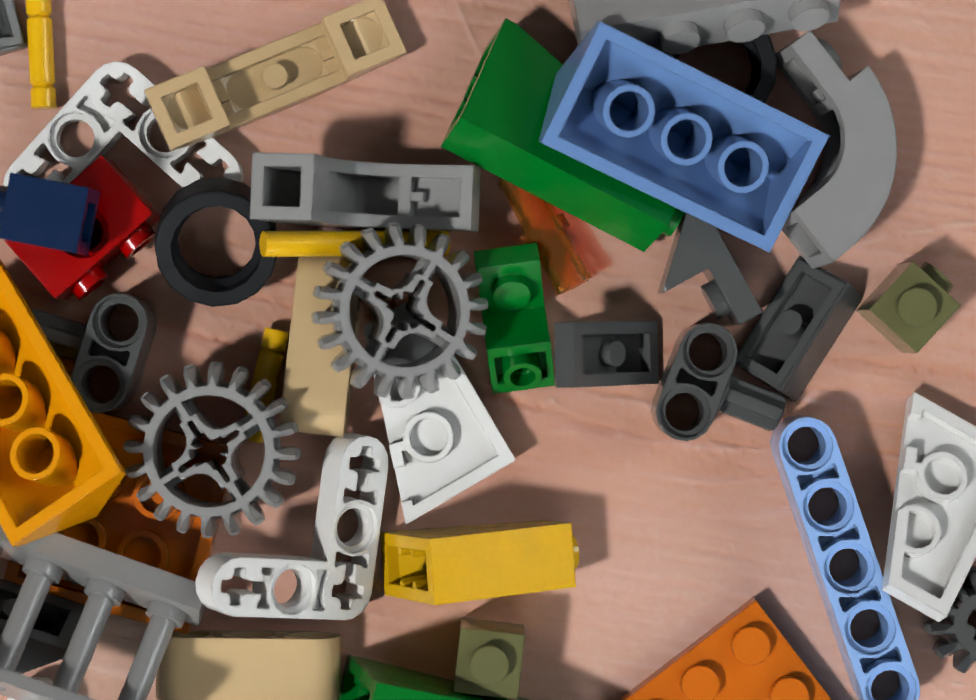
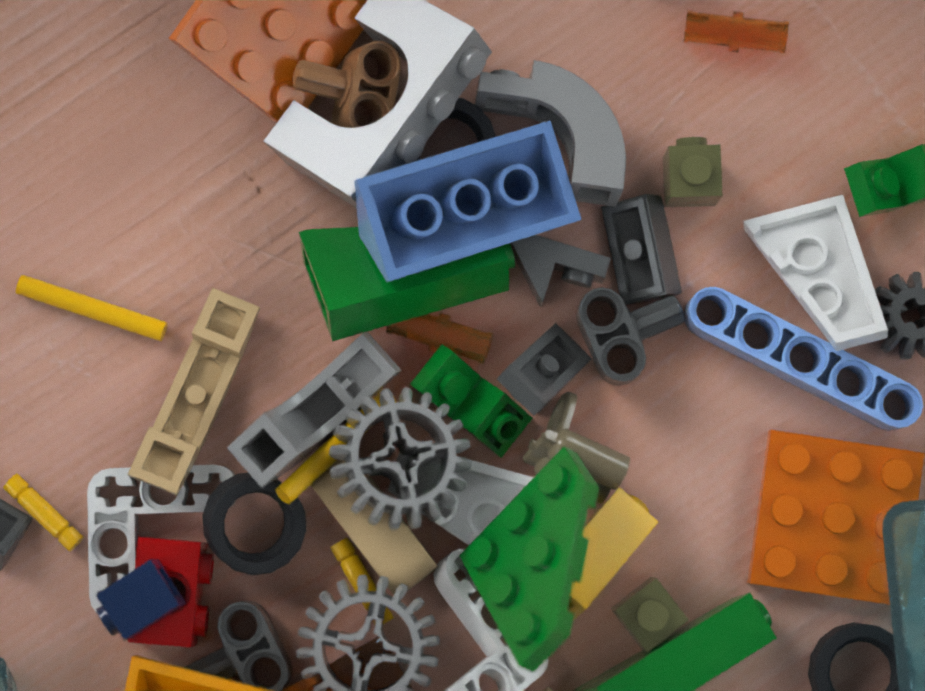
camera: 45 degrees left, 5 degrees down
(433, 515) = (533, 556): none -> green plate
(555, 460) = (603, 463): none -> dark tan piece

